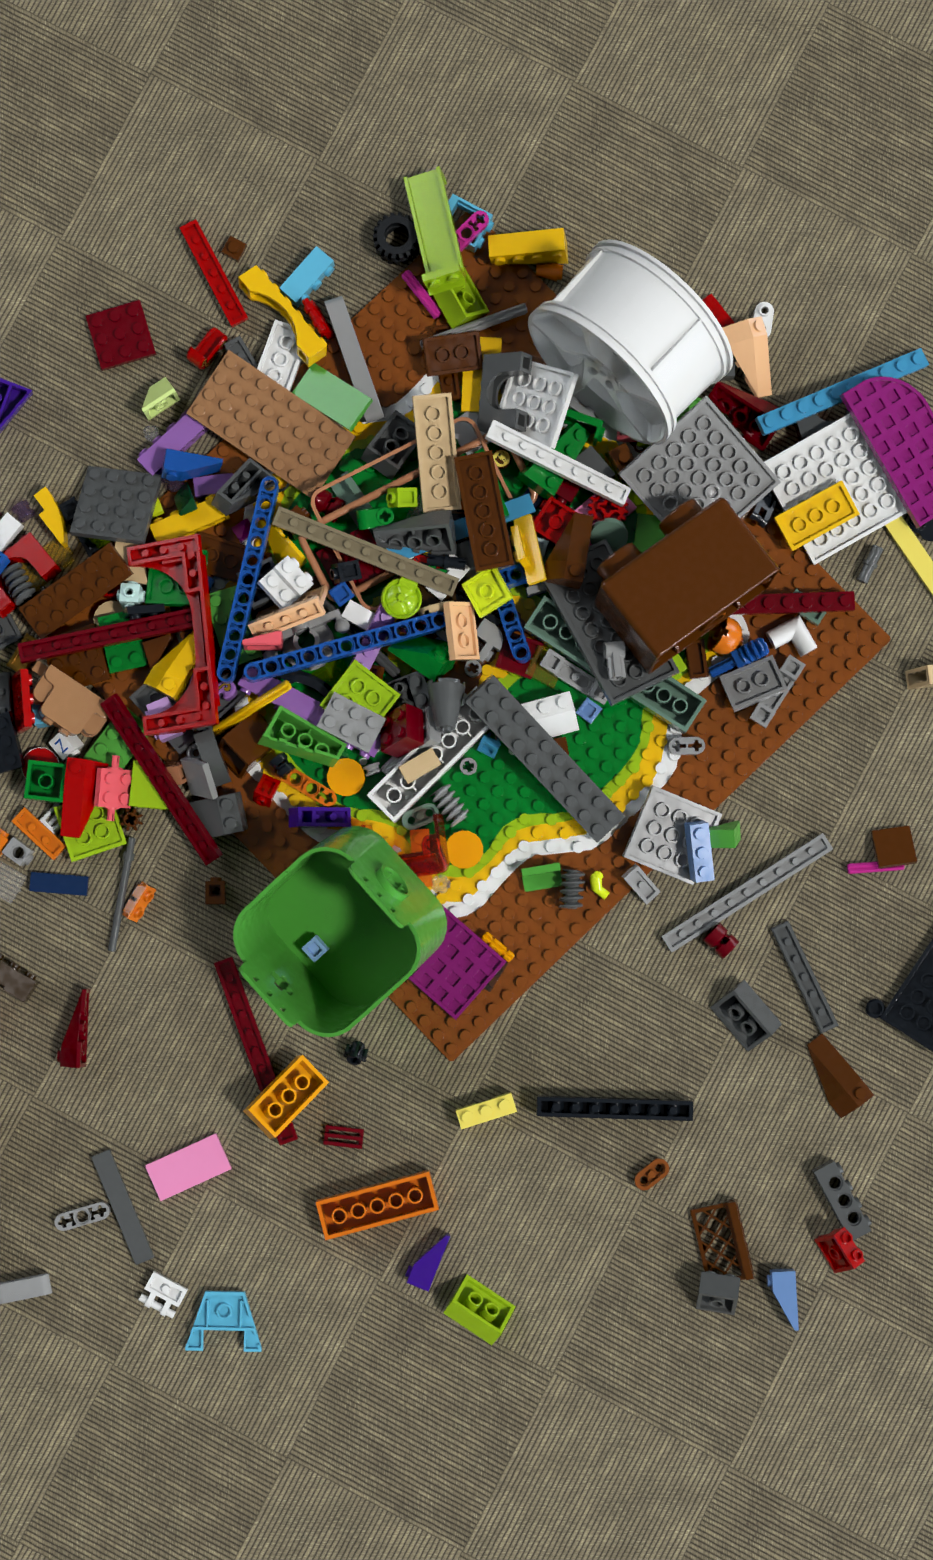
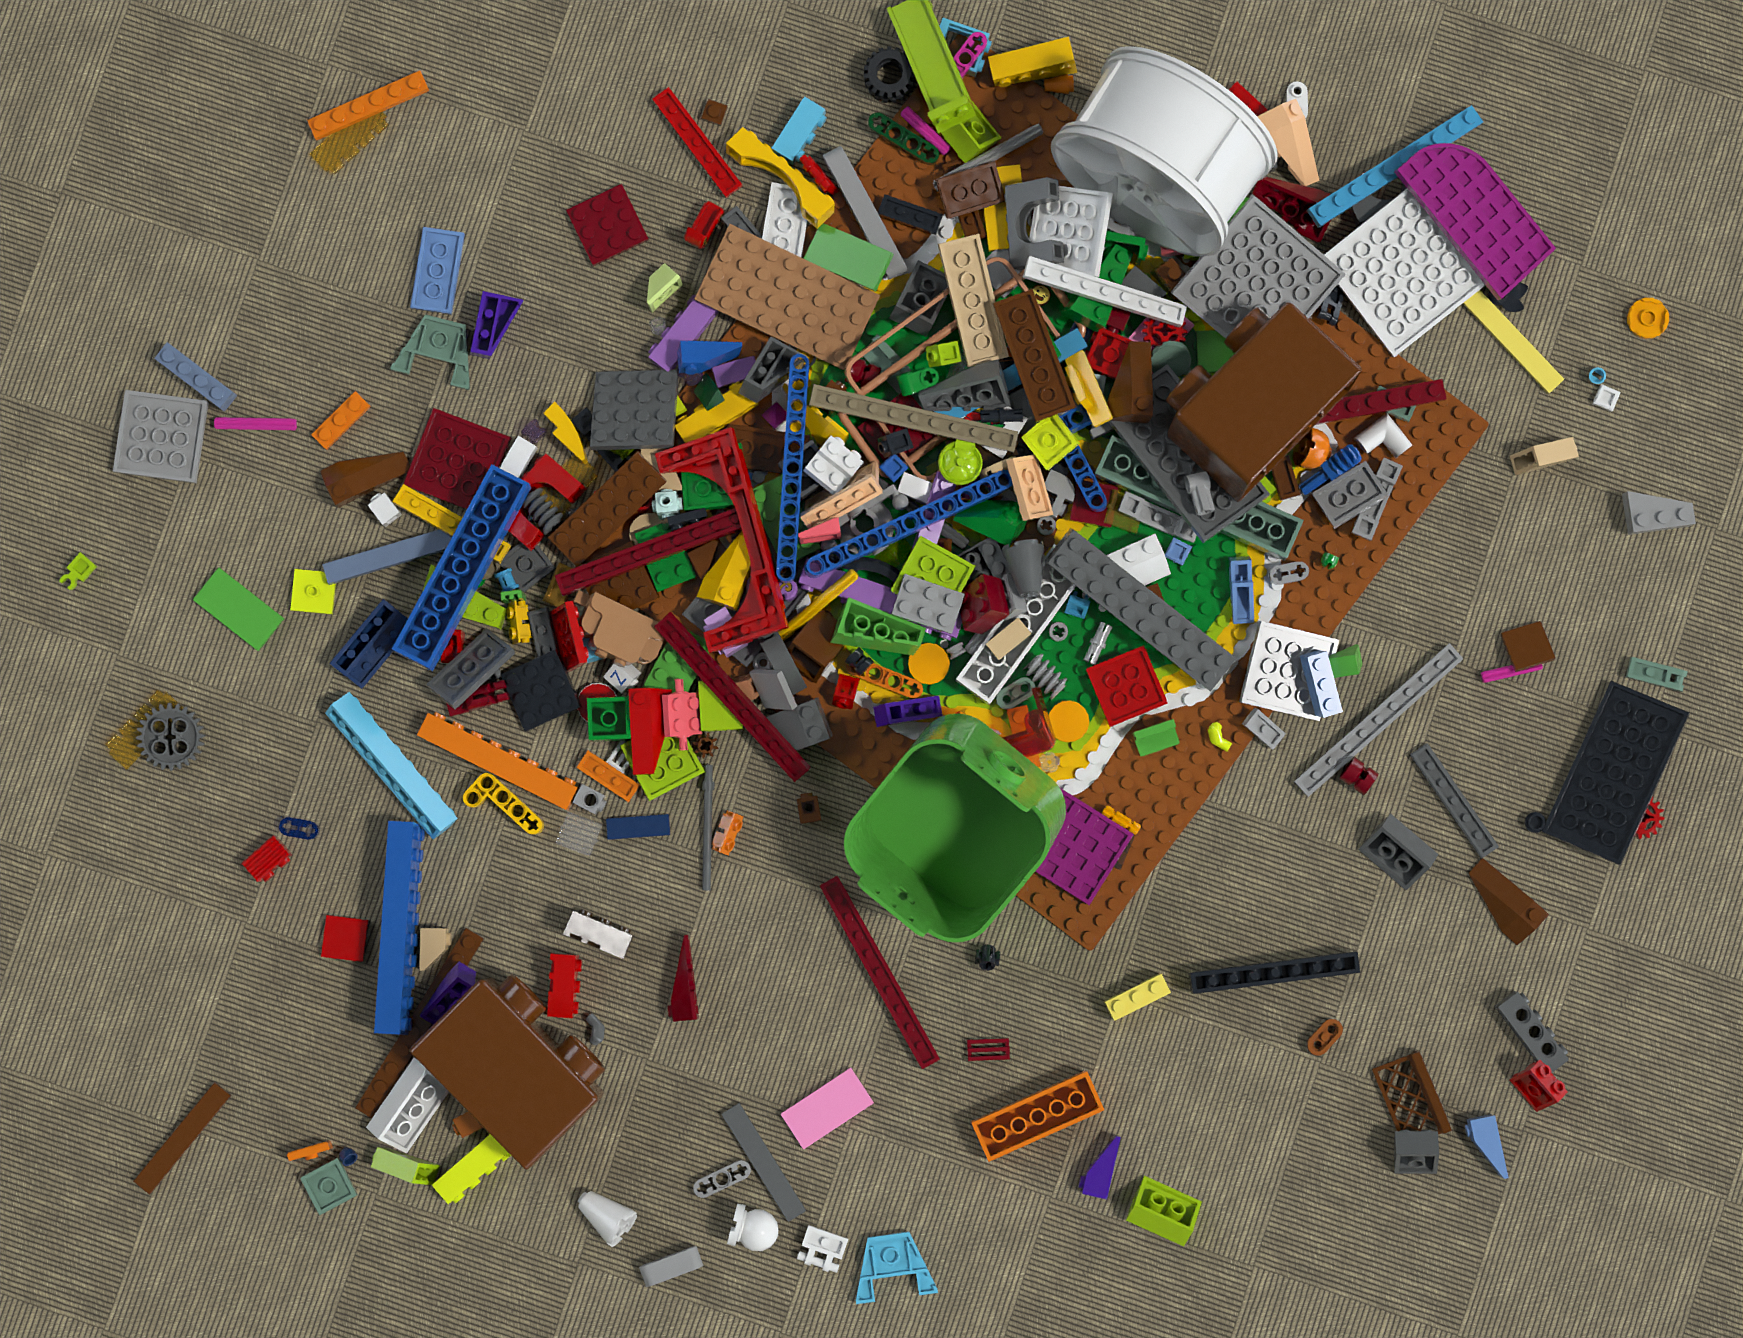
camera: 10 degrees left, 0 degrees up
(102, 1267) = (754, 1229): none -> white tile
(286, 1096) = (921, 1015): light orange brick -> none
(315, 948) = (926, 852): light blue plate -> none
(395, 367) = (910, 214): none -> black plate
(400, 298) = (904, 137): none -> dark green beam
(502, 782) = (1097, 643): none -> light grey pin
(522, 825) = (1126, 686): none -> red plate
(571, 889) = (1191, 745): dark grey piece -> none
(641, 754) = (1241, 589): none -> medium blue slope
(724, 738) = (1329, 559): none -> green hinge
(816, 515) = (1389, 304): yellow plate -> none
(870, 564) = (1454, 346): dark grey pin -> none

